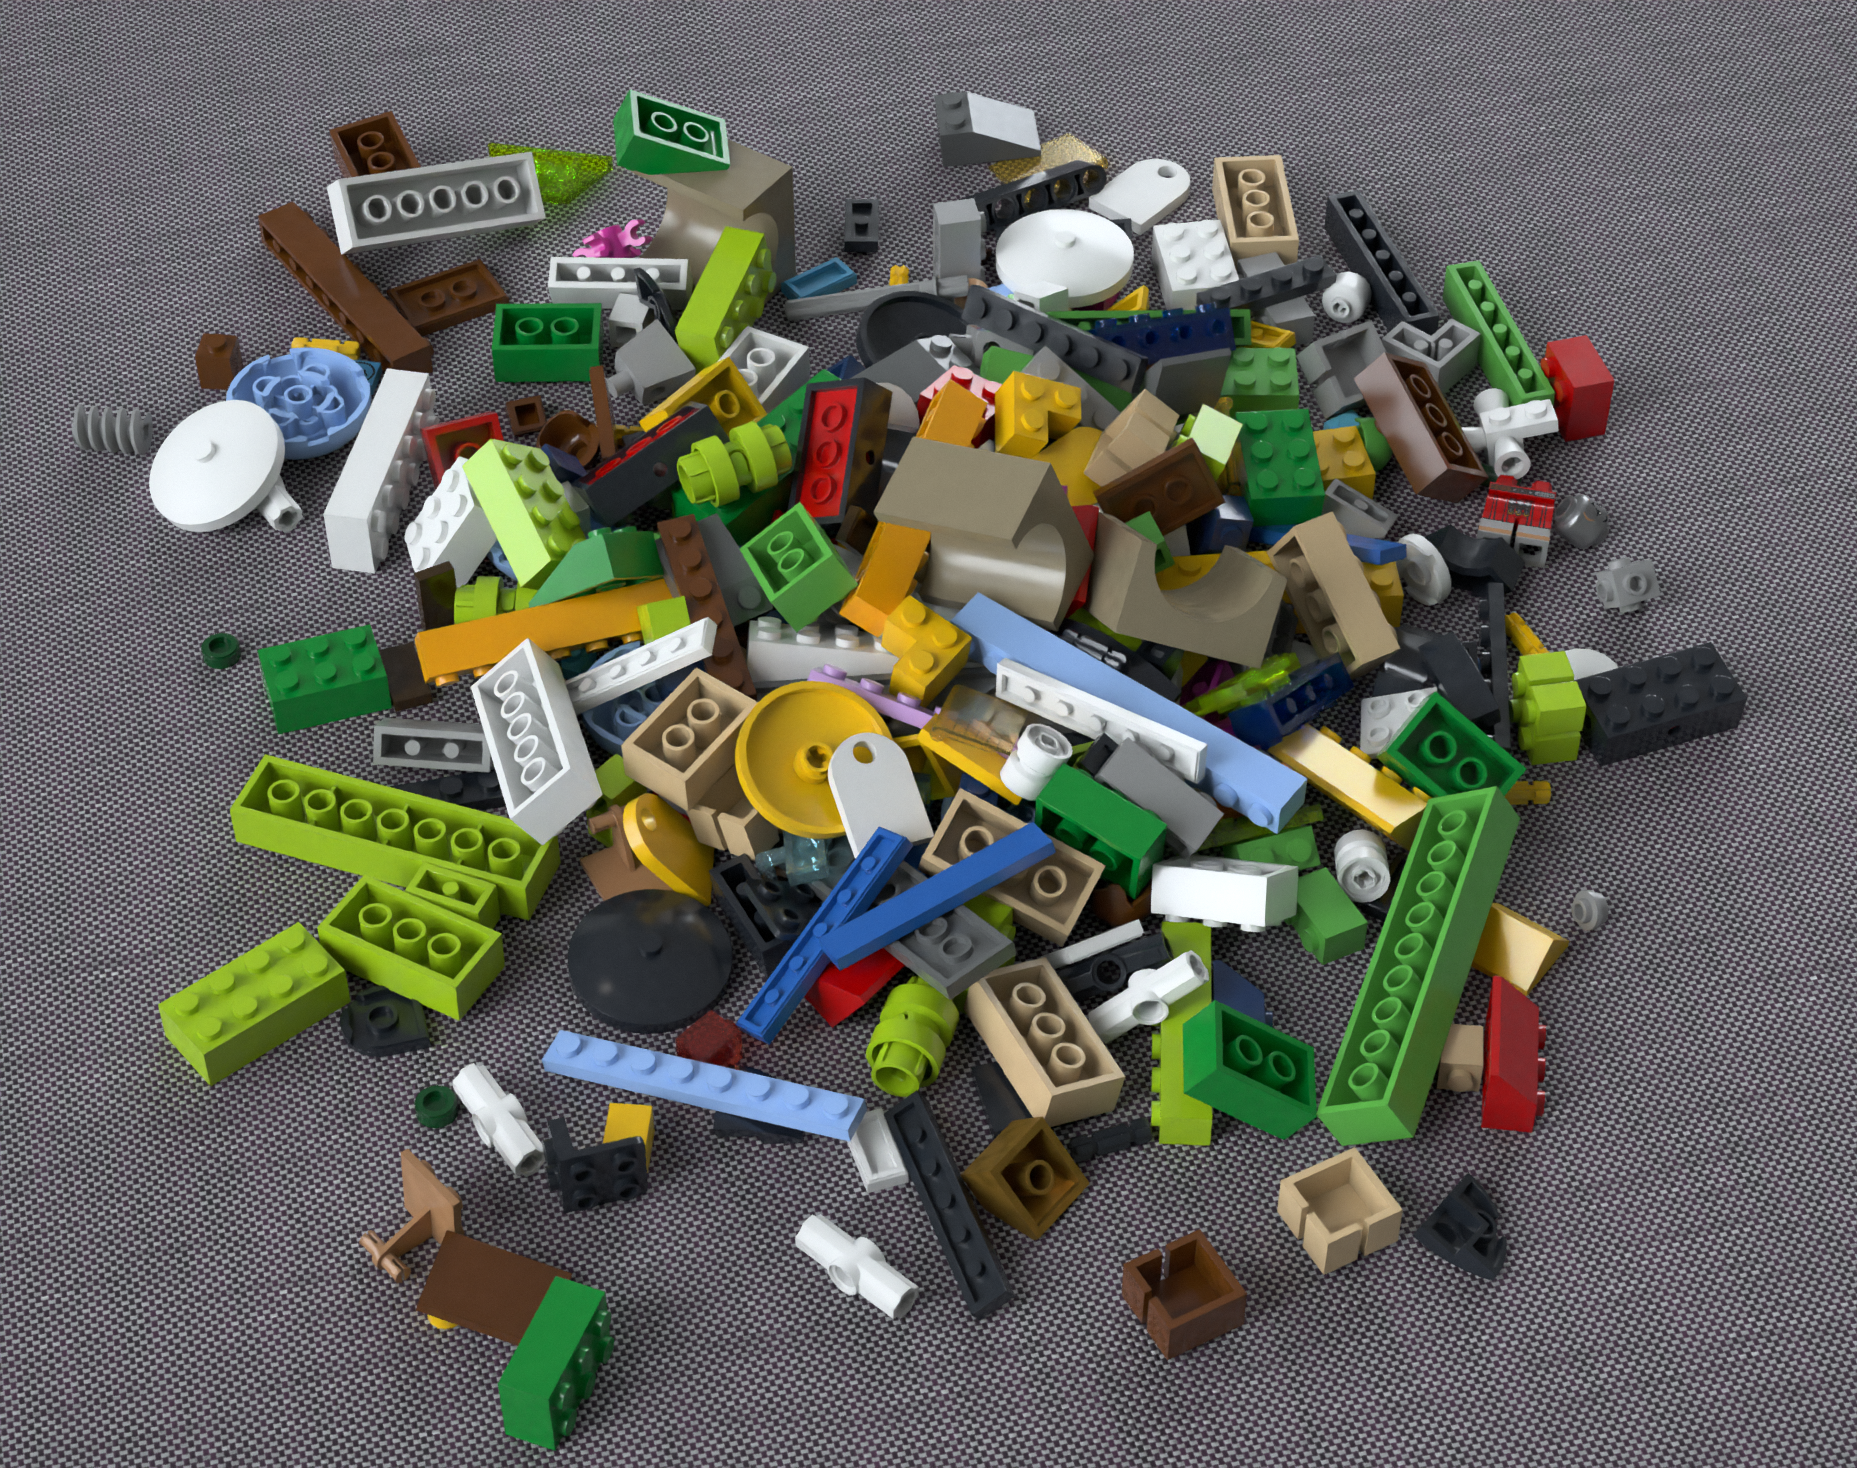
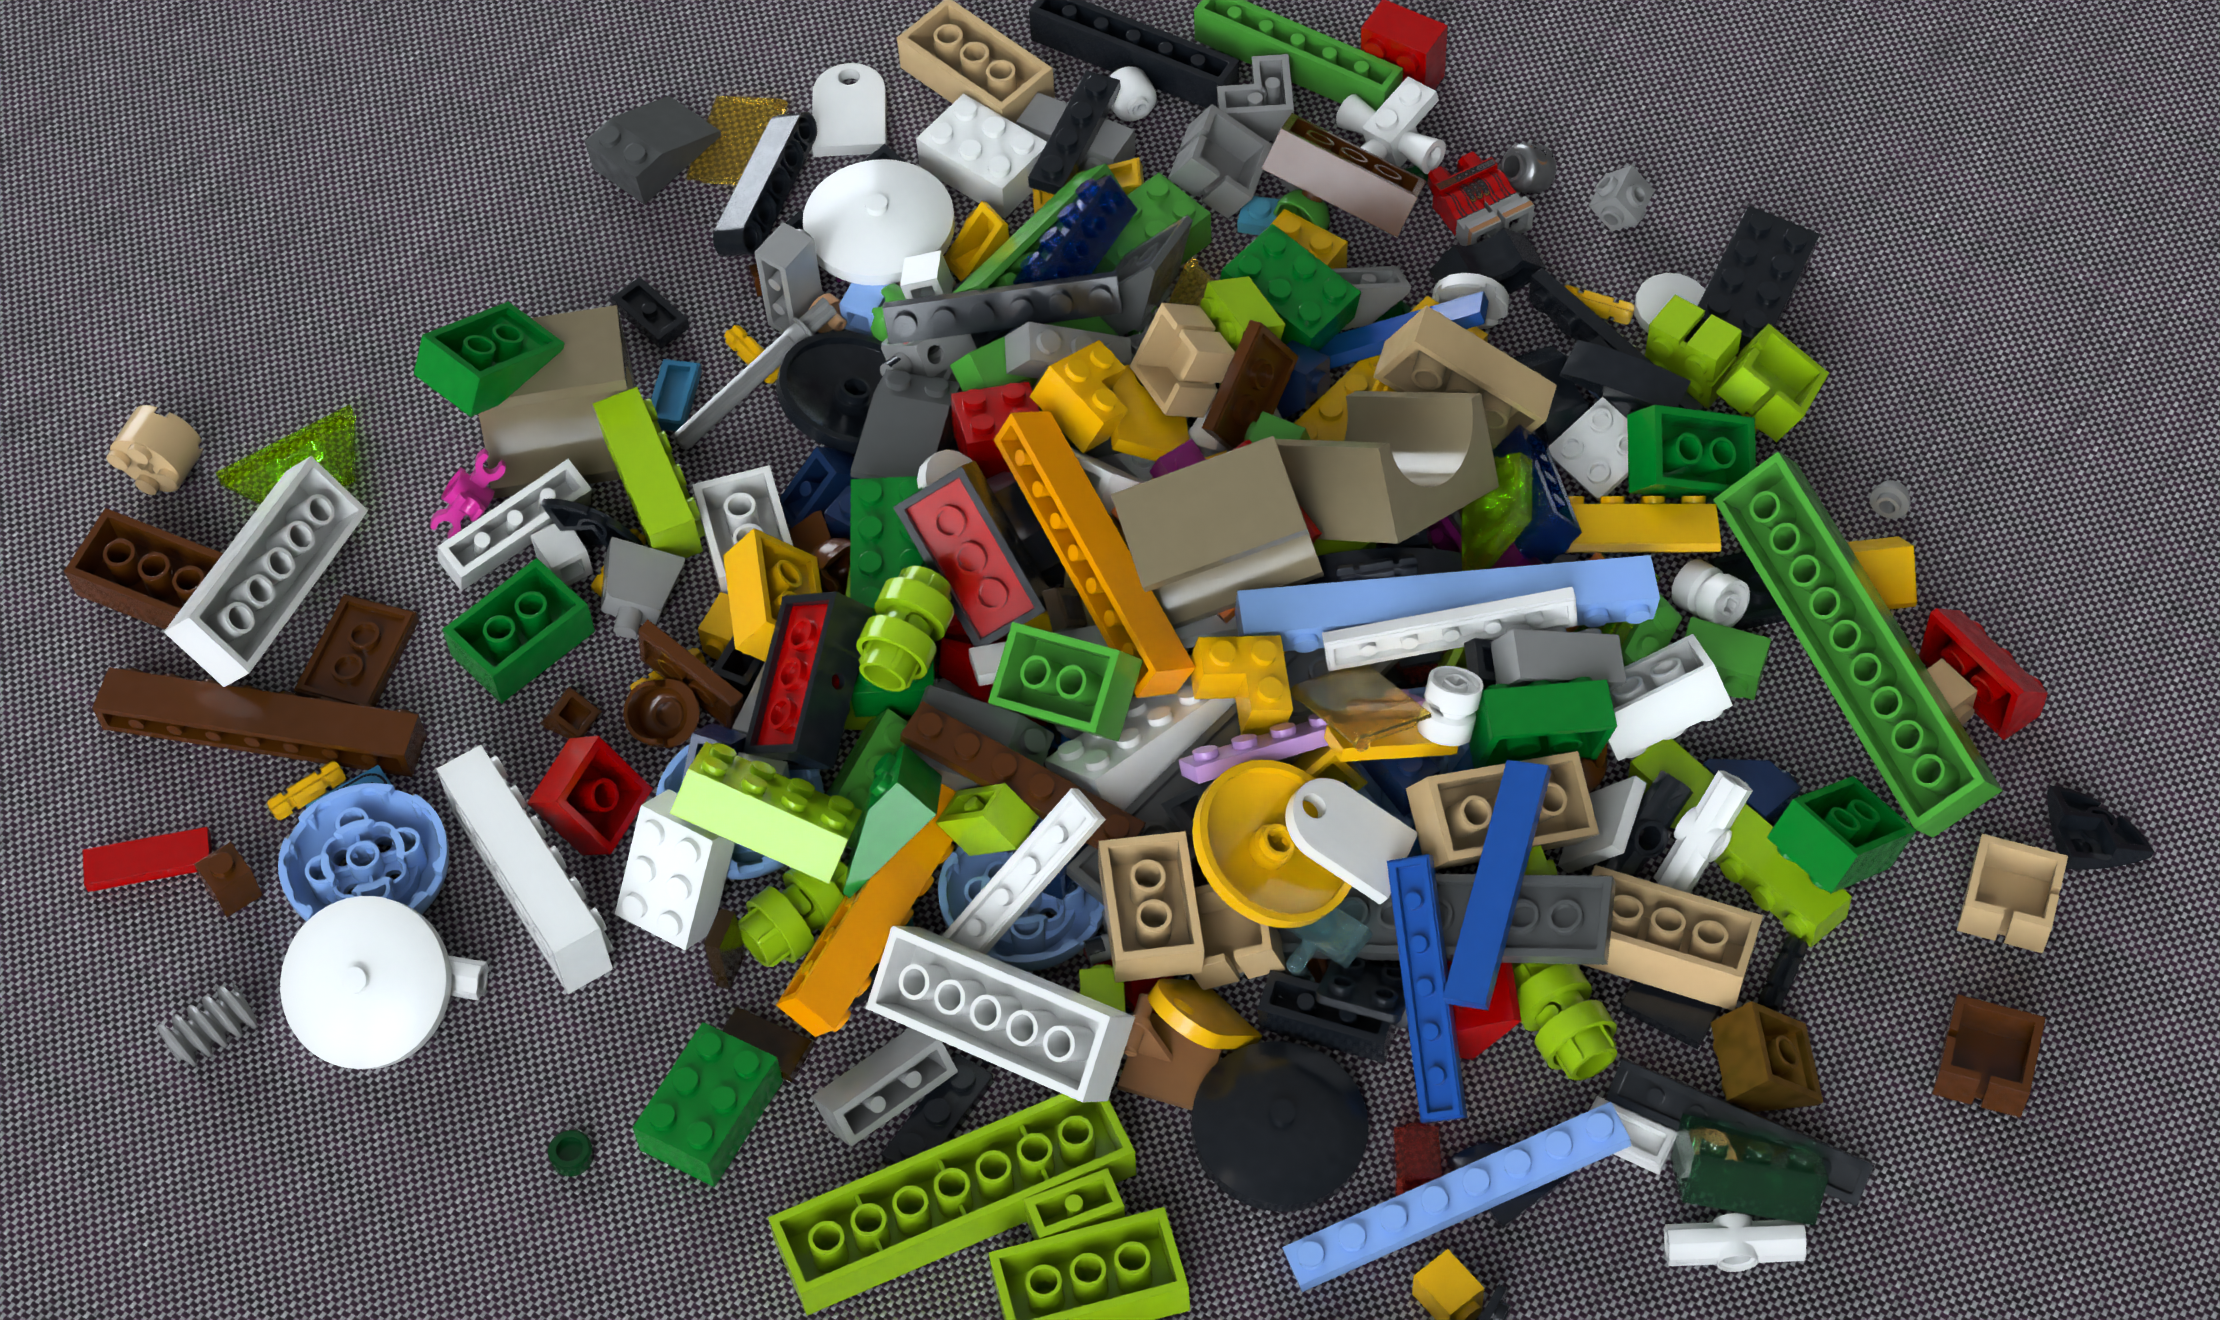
camera: 40 degrees left, 10 degrees up
(190, 320) = (145, 859): none -> red tile
(465, 104) = (155, 450): none -> tan brick
(909, 1222) = (1746, 1172): none -> clear green wedge
(1584, 769) = (1772, 382): none -> lime piece

